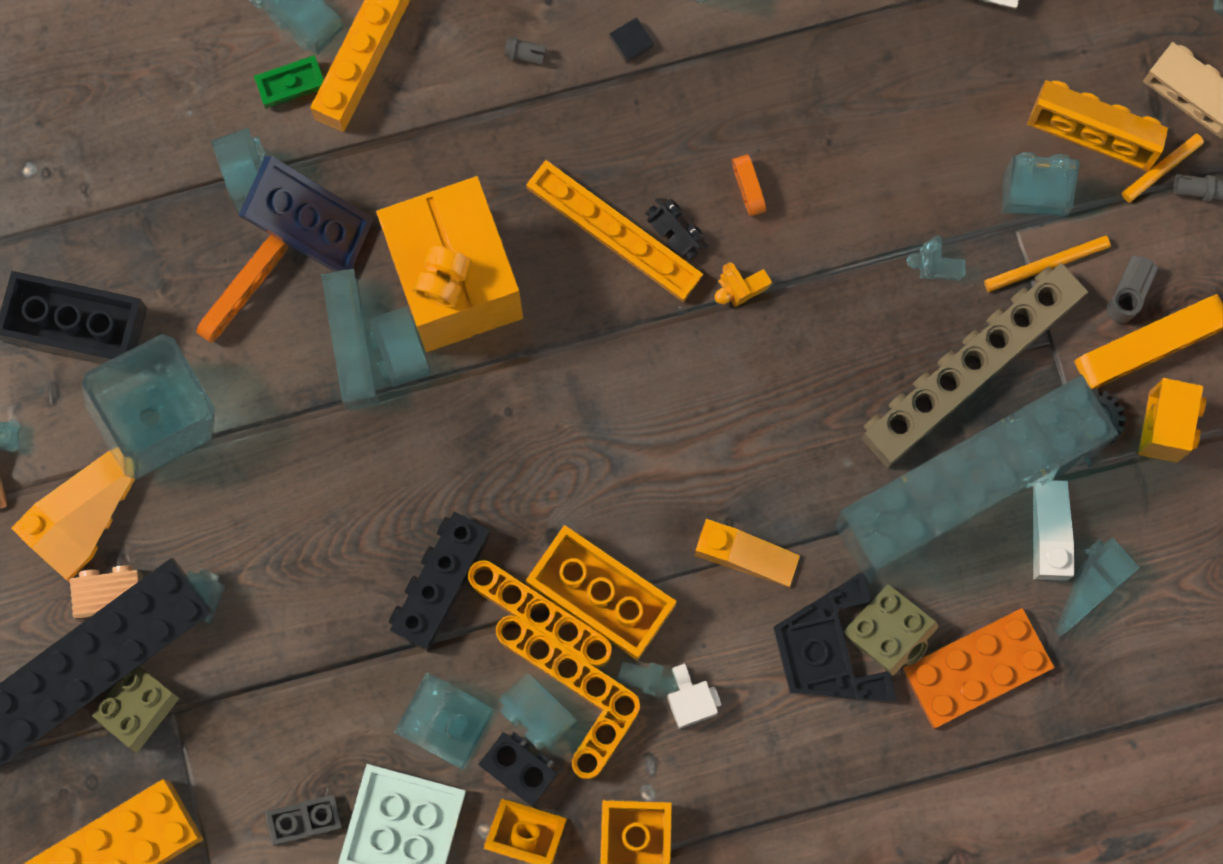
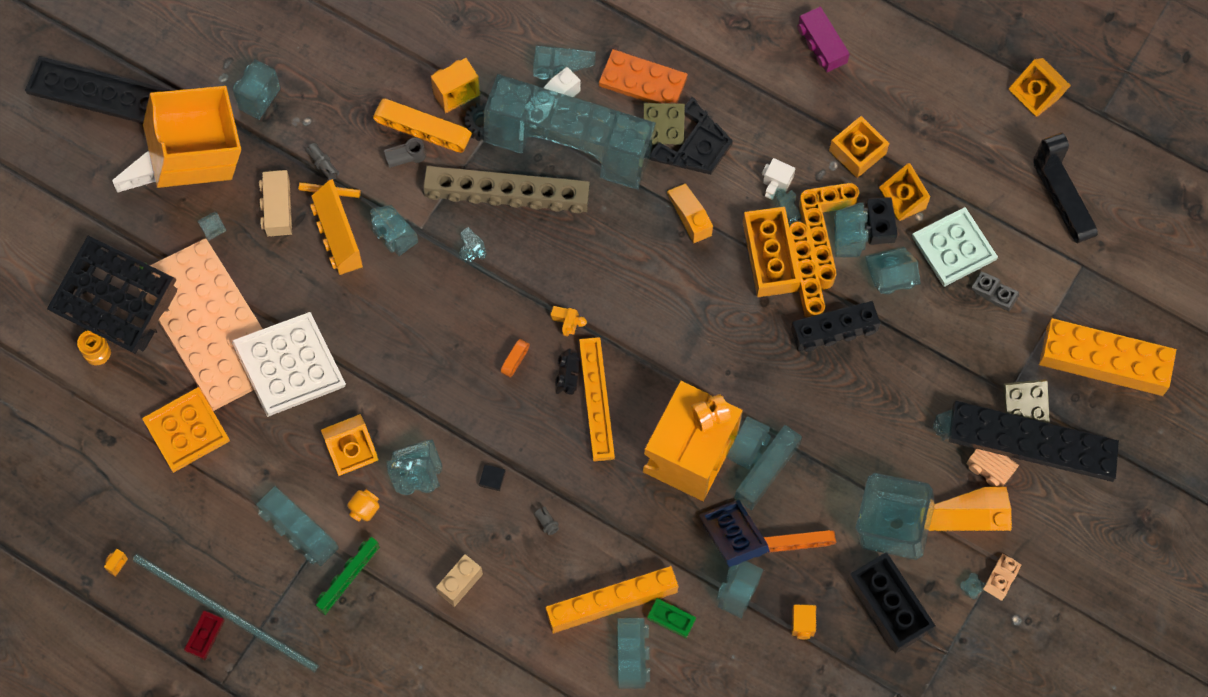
camera: 135 degrees left, 10 degrees down
(148, 213) = (803, 621): none -> light orange brick
(1053, 261) = (425, 201): light orange bar -> none

